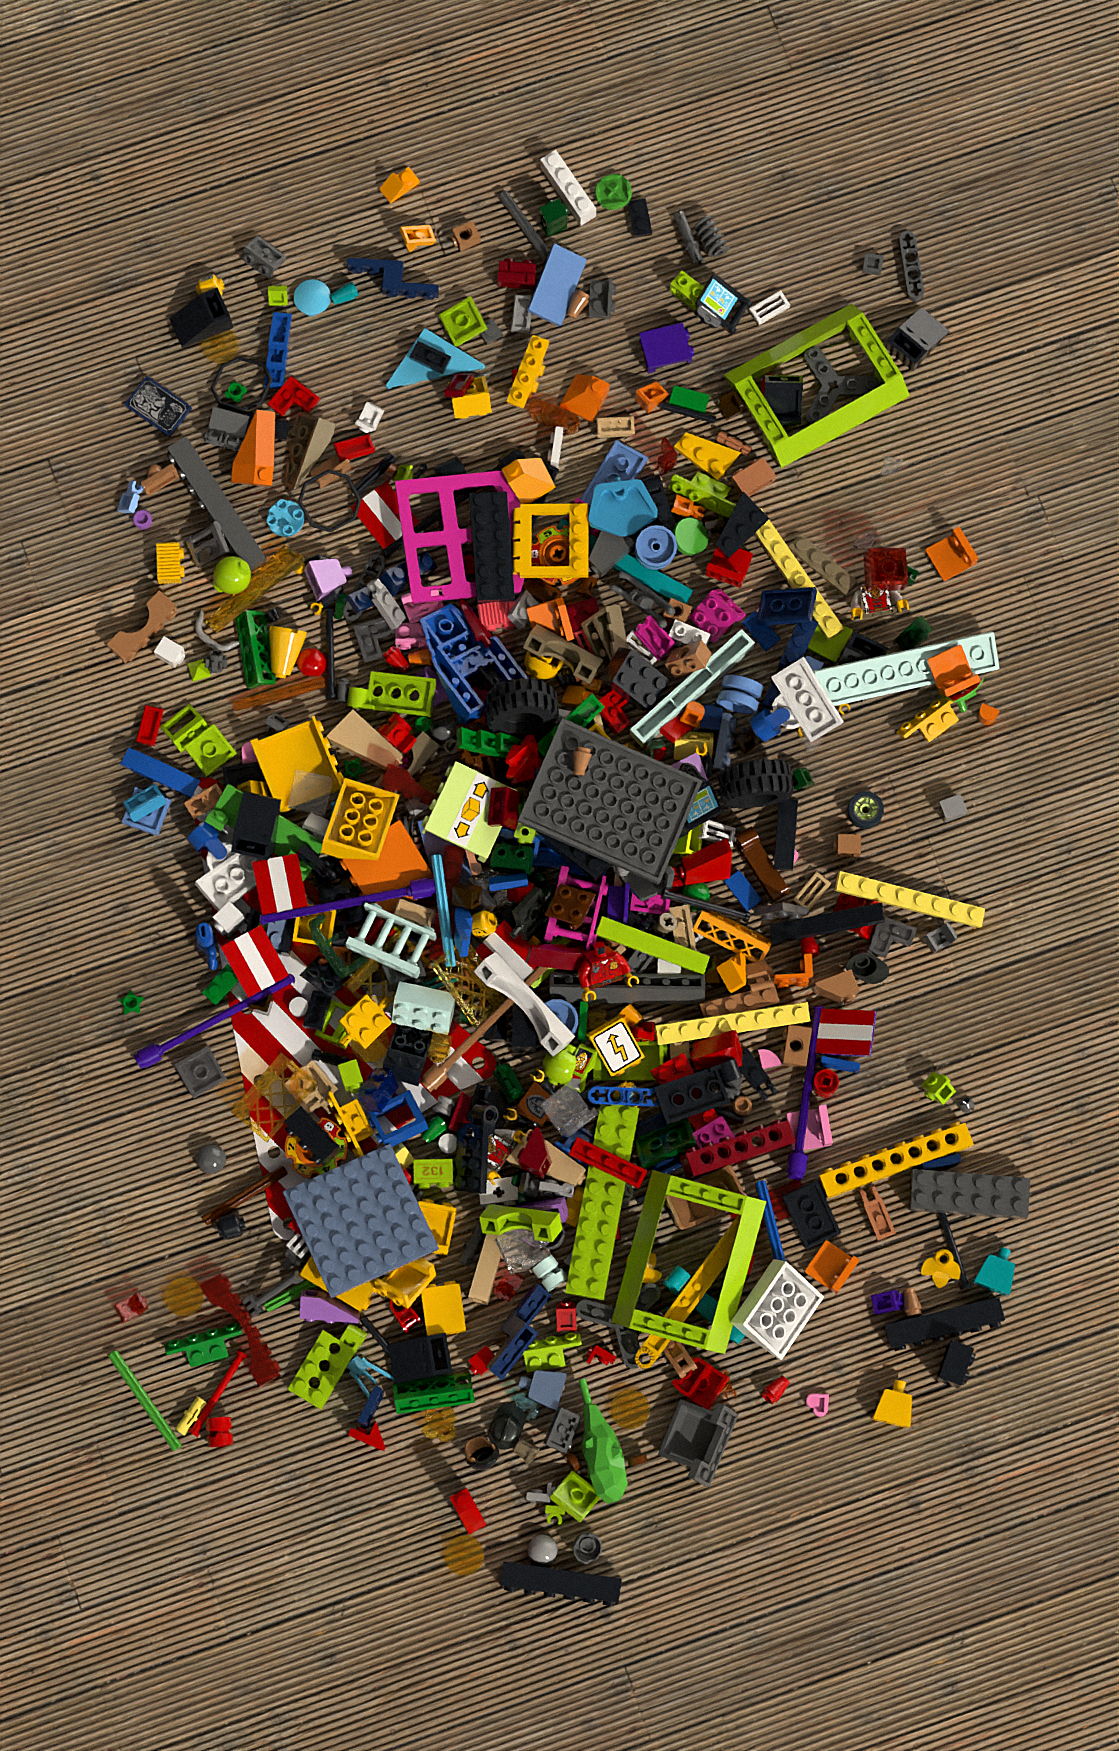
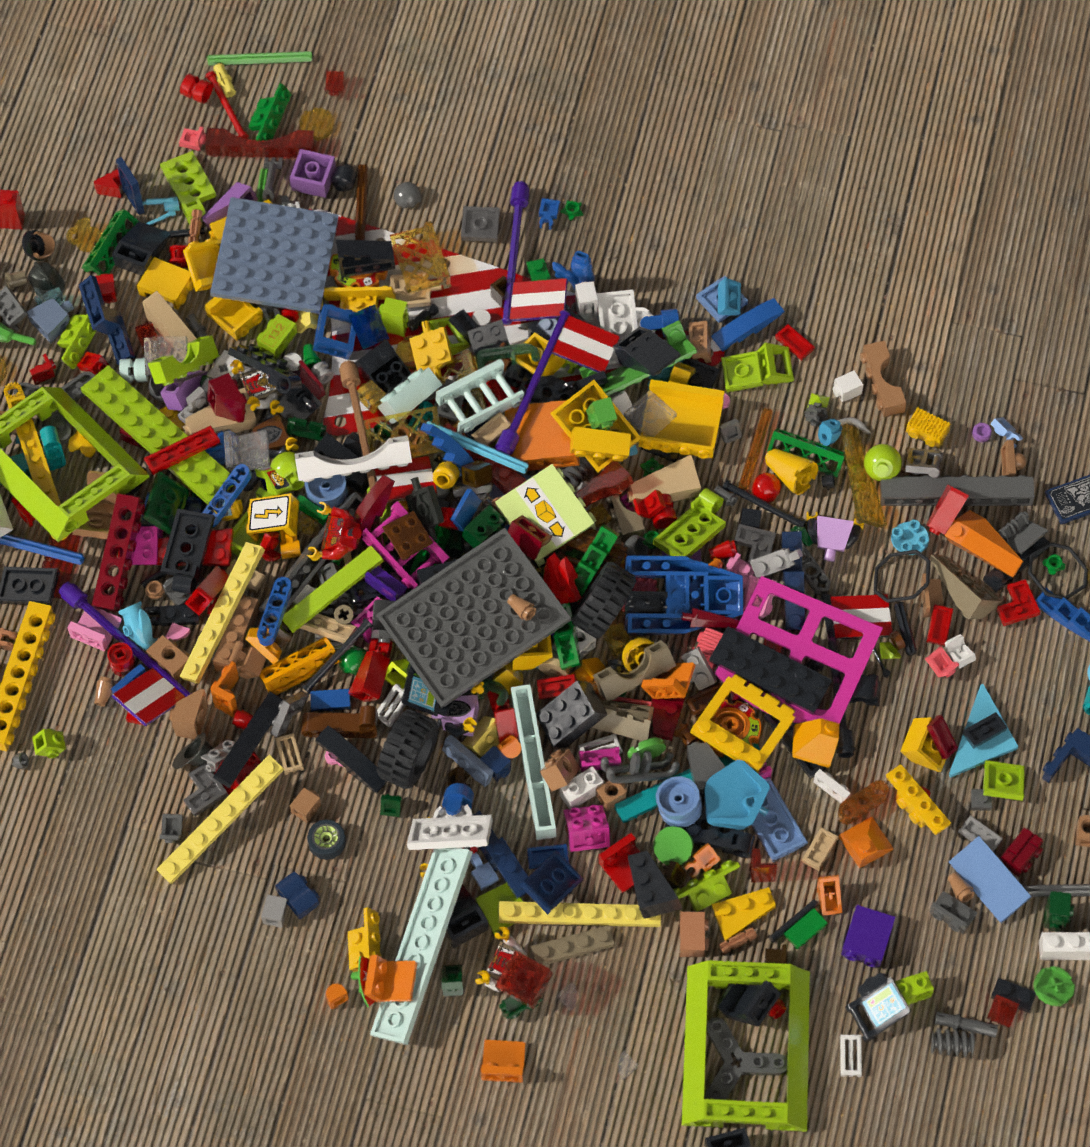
camera: 125 degrees right, 15 degrees down
(148, 1020) = (548, 211): none -> blue plate
(228, 637) = (829, 431): none -> dark azure piece
(245, 495) = (946, 510): none -> slope
(245, 1255) = (312, 173): none -> medium lavender brick
(275, 1396) = (193, 139): none -> coral bracket
(350, 657) = (751, 517): none -> black tile
(356, 809) = (601, 414): none -> bright green brick
(369, 1324) = (195, 225): none -> nougat axle
(378, 801) = (600, 443): none -> yellow brick
(389, 425) = (941, 663): none -> coral bracket
(628, 607) = (653, 745): none -> bright green tile
(660, 218) = (1002, 1011): none -> clear red panel
(706, 971) = (277, 611): none -> blue beam
(739, 694) = (499, 793): medium blue wheel -> none
(787, 1091) = (138, 626): none -> medium azure animal
(853, 940) = (217, 755): none -> light grey hinge
(858, 1081) = (103, 690): none -> medium nougat cone
(927, 800) = (298, 895): none -> dark blue brick

